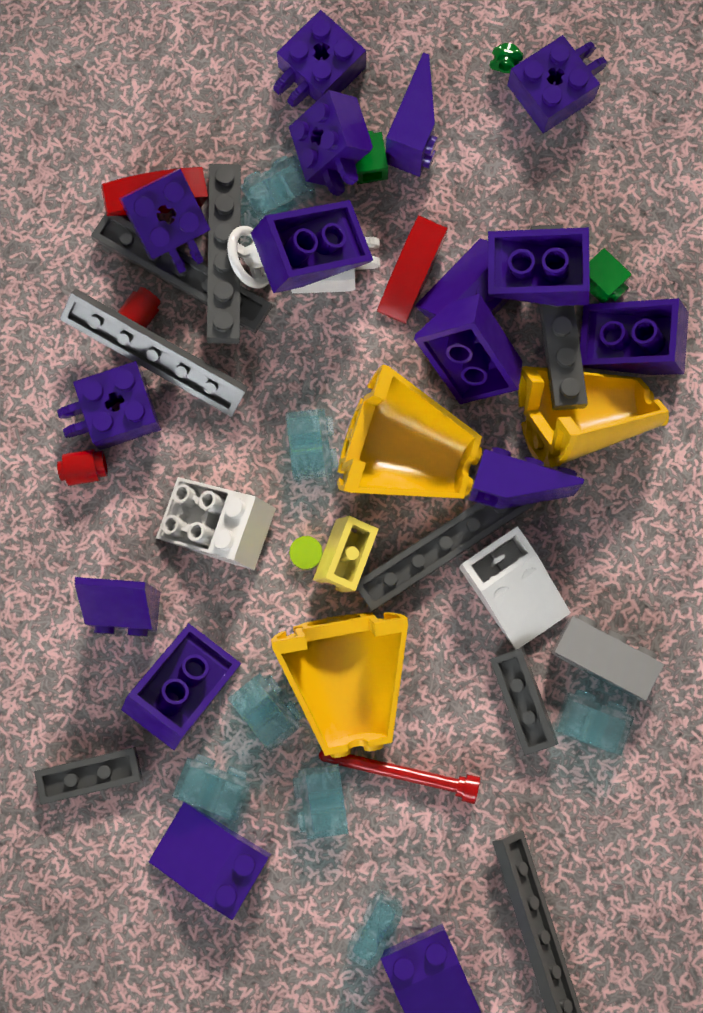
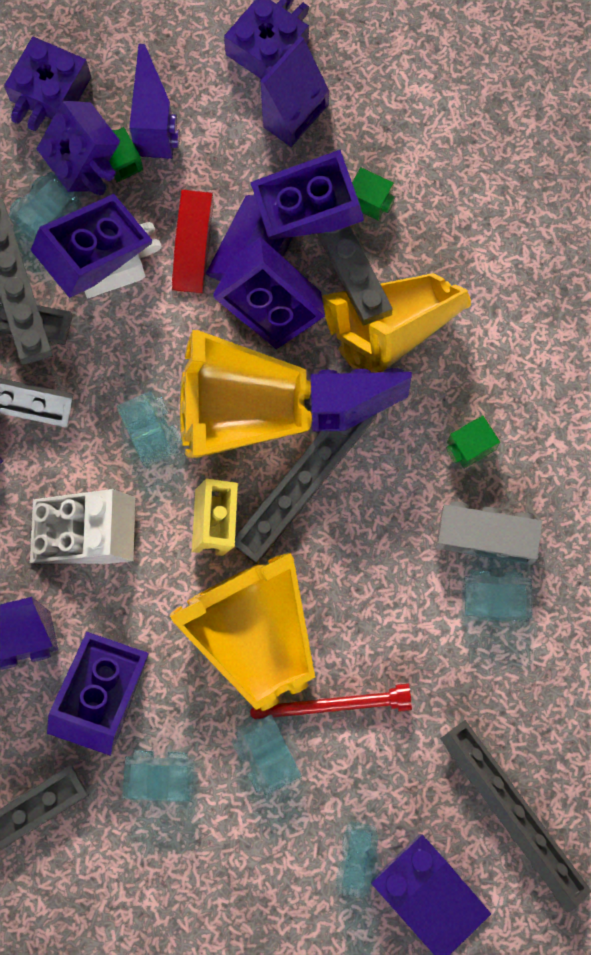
camera: 20 degrees left, 5 degrees down
(209, 860) = (177, 848): dark purple slope -> none
(250, 257) = (38, 275): white piece -> none
(265, 711) = (186, 688): clear light blue brick -> none
(306, 552) = (177, 530): lime tile -> none
(505, 57) = (215, 29): green plate -> none
(515, 588) = (382, 497): white slope -> none
(524, 701) = (425, 599): dark grey plate -> none
(561, 150) = (292, 93): none -> dark purple slope
(621, 562) = (472, 442): none -> green brick
(635, 336) = (416, 237): dark purple slope -> none

